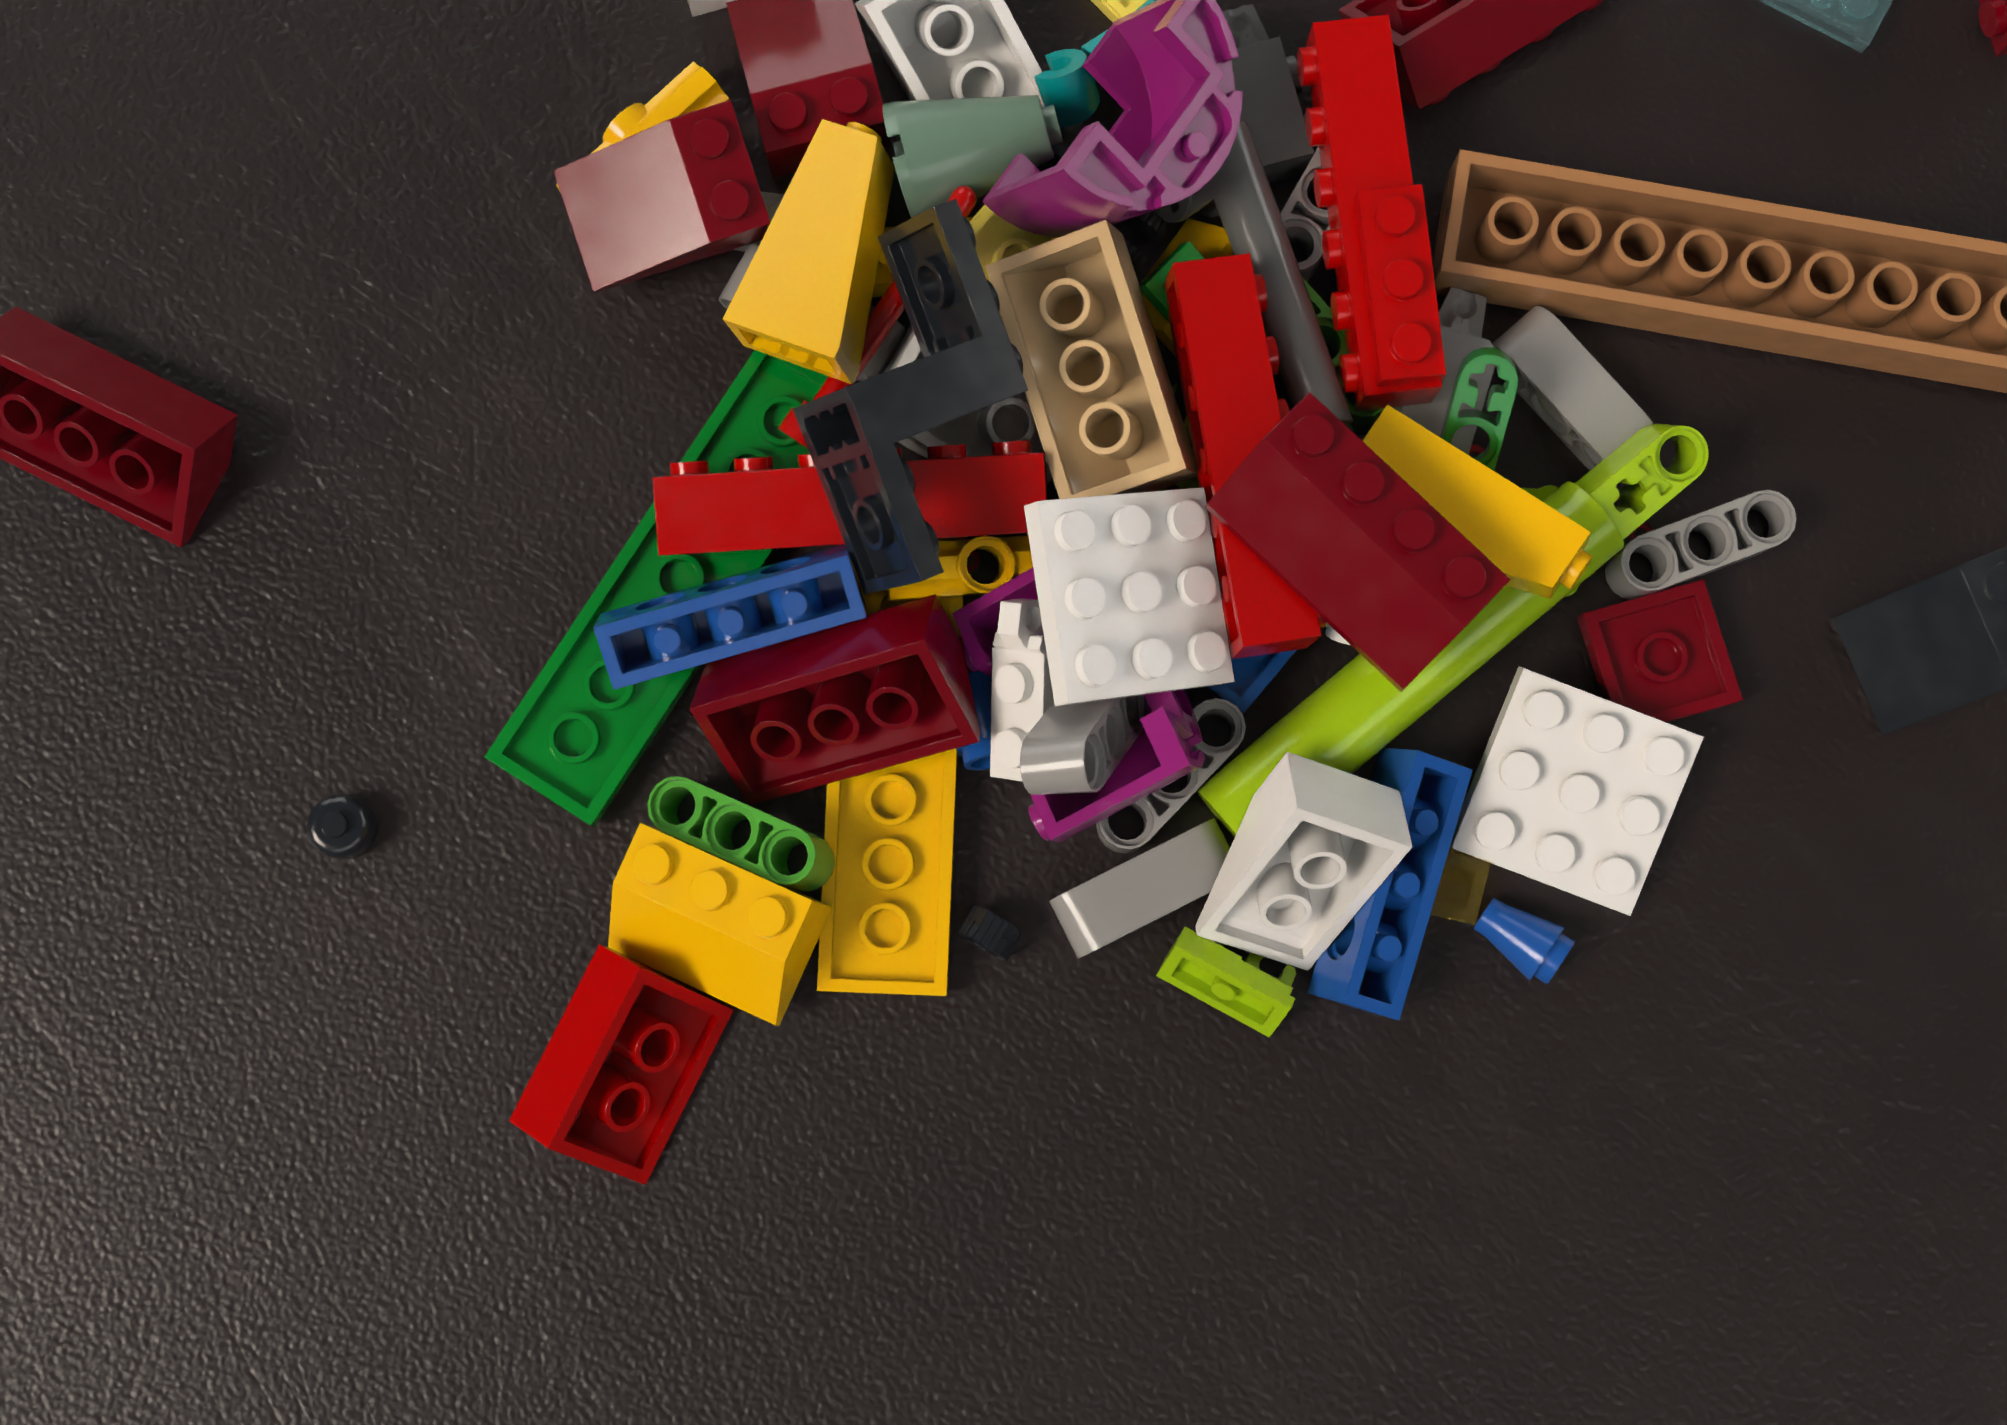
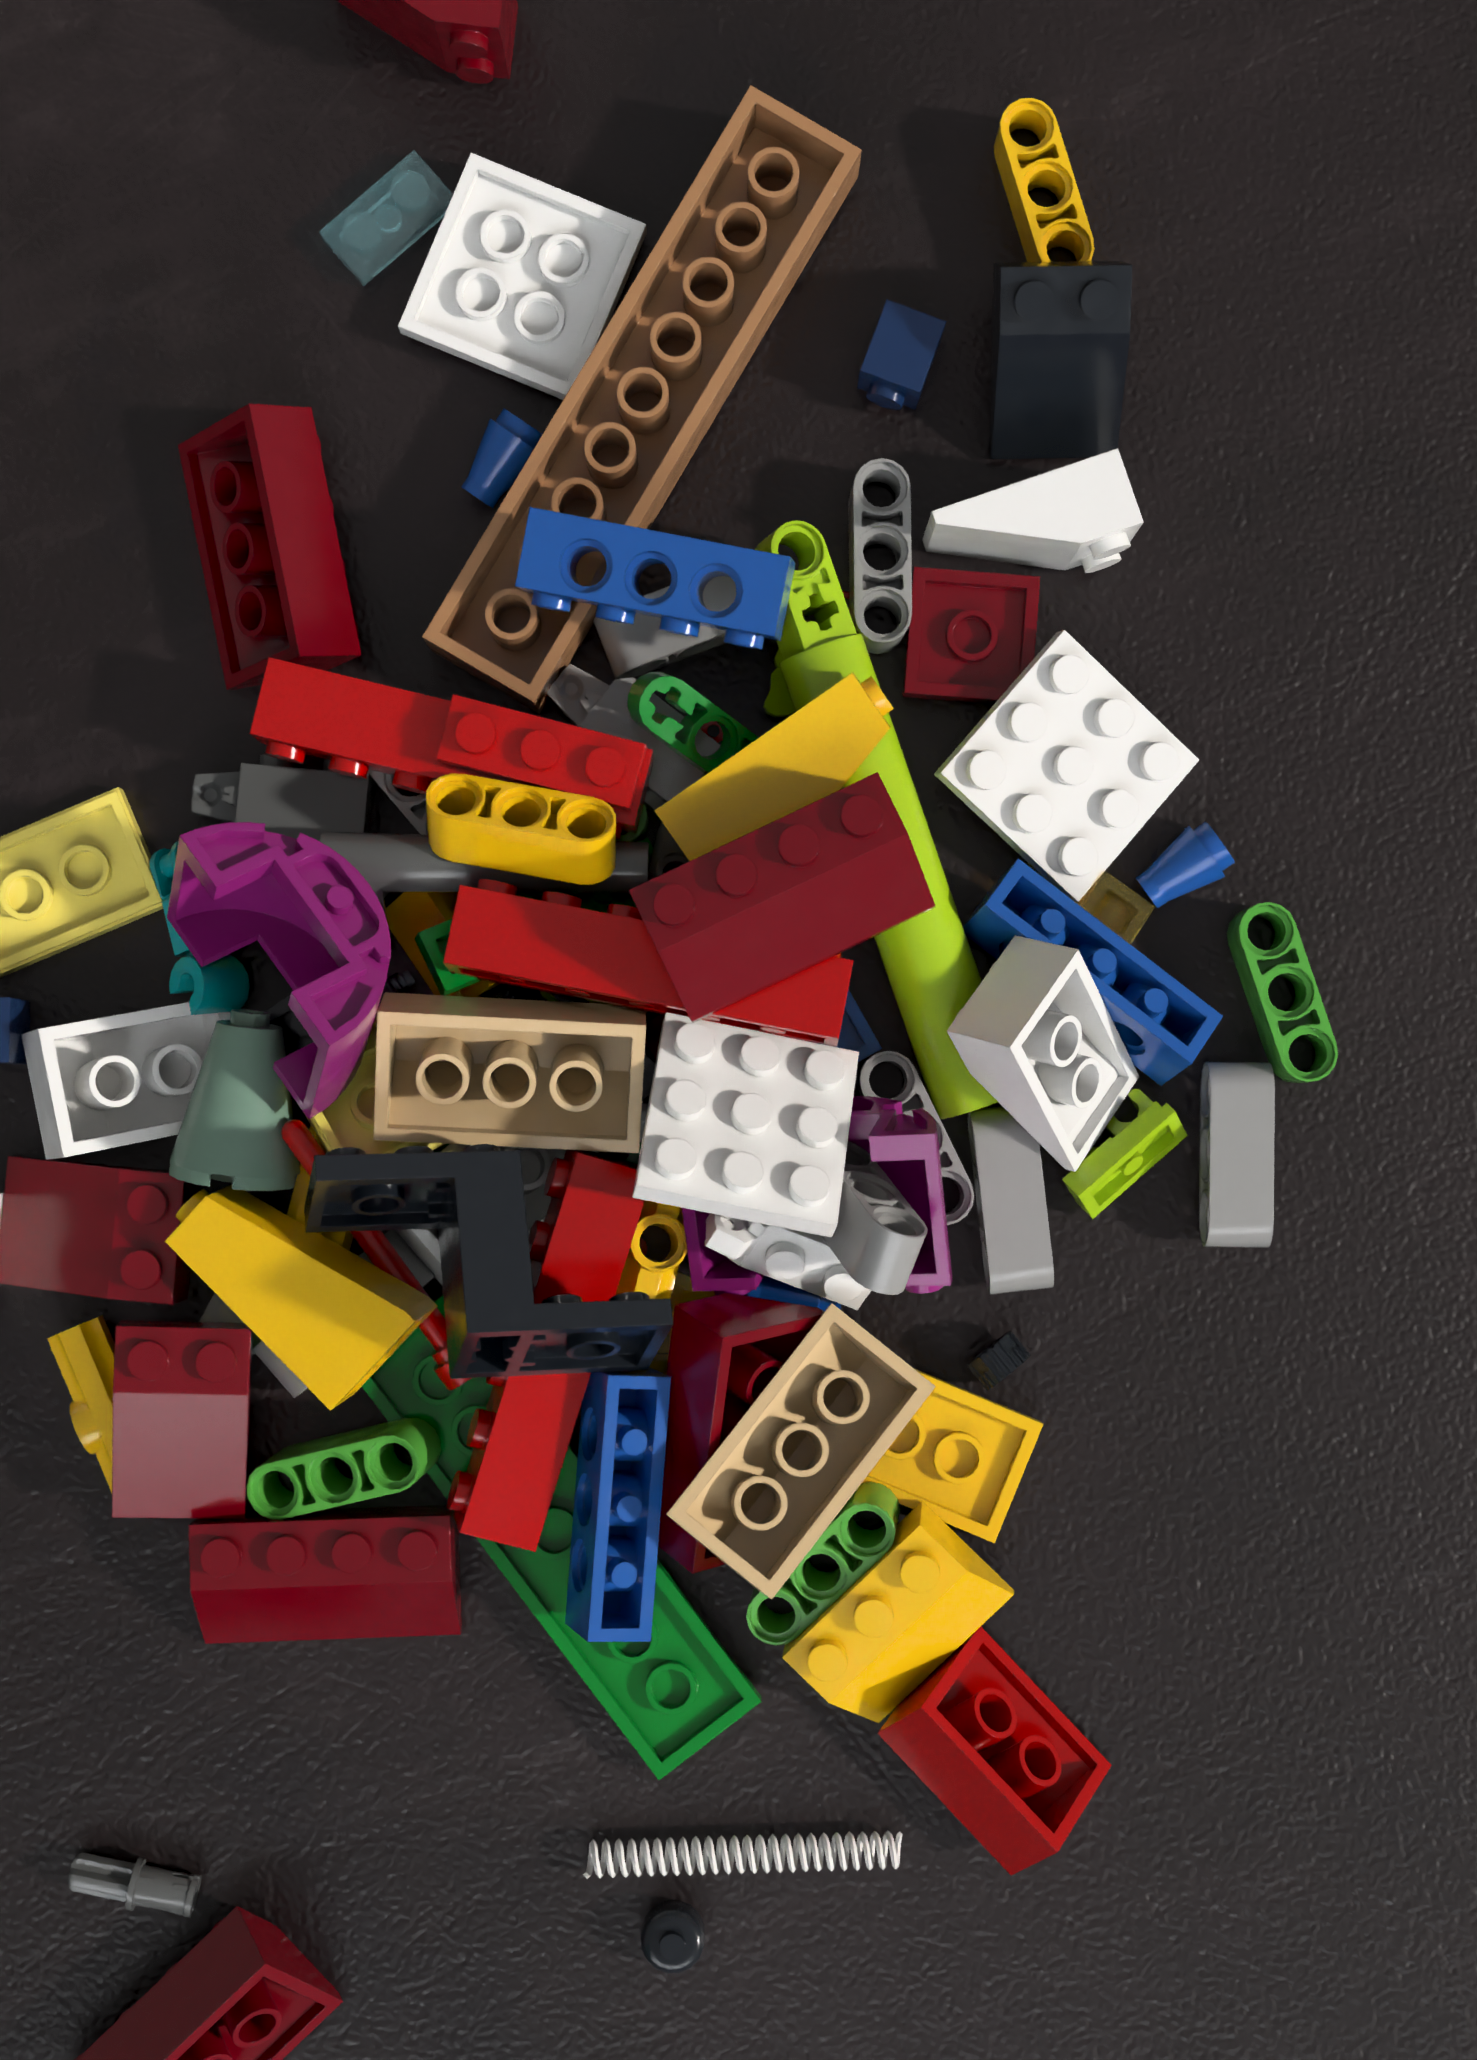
camera: 75 degrees left, 5 degrees up
(226, 321) = (134, 1883): none -> dark grey axle
(436, 870) = (741, 1856): none -> white piece
(566, 387) = (327, 1575): none -> dark red slope
(653, 345) = (322, 1486): none -> bright green beam
(841, 761) = (800, 1451): none -> tan slope
(1270, 1089) = (1236, 1154): none -> light grey beam
(1322, 292) = (521, 829): none -> yellow beam
(1471, 1068) = (1306, 1015): none -> bright green beam
(1600, 231) = (559, 540): none -> blue brick
(1651, 163) = (500, 457): none -> blue cone
(1798, 678) = (1046, 521): none -> white slope
(1823, 124) = (521, 277): none -> white plate
(1894, 495) = (900, 356): none -> dark blue brick

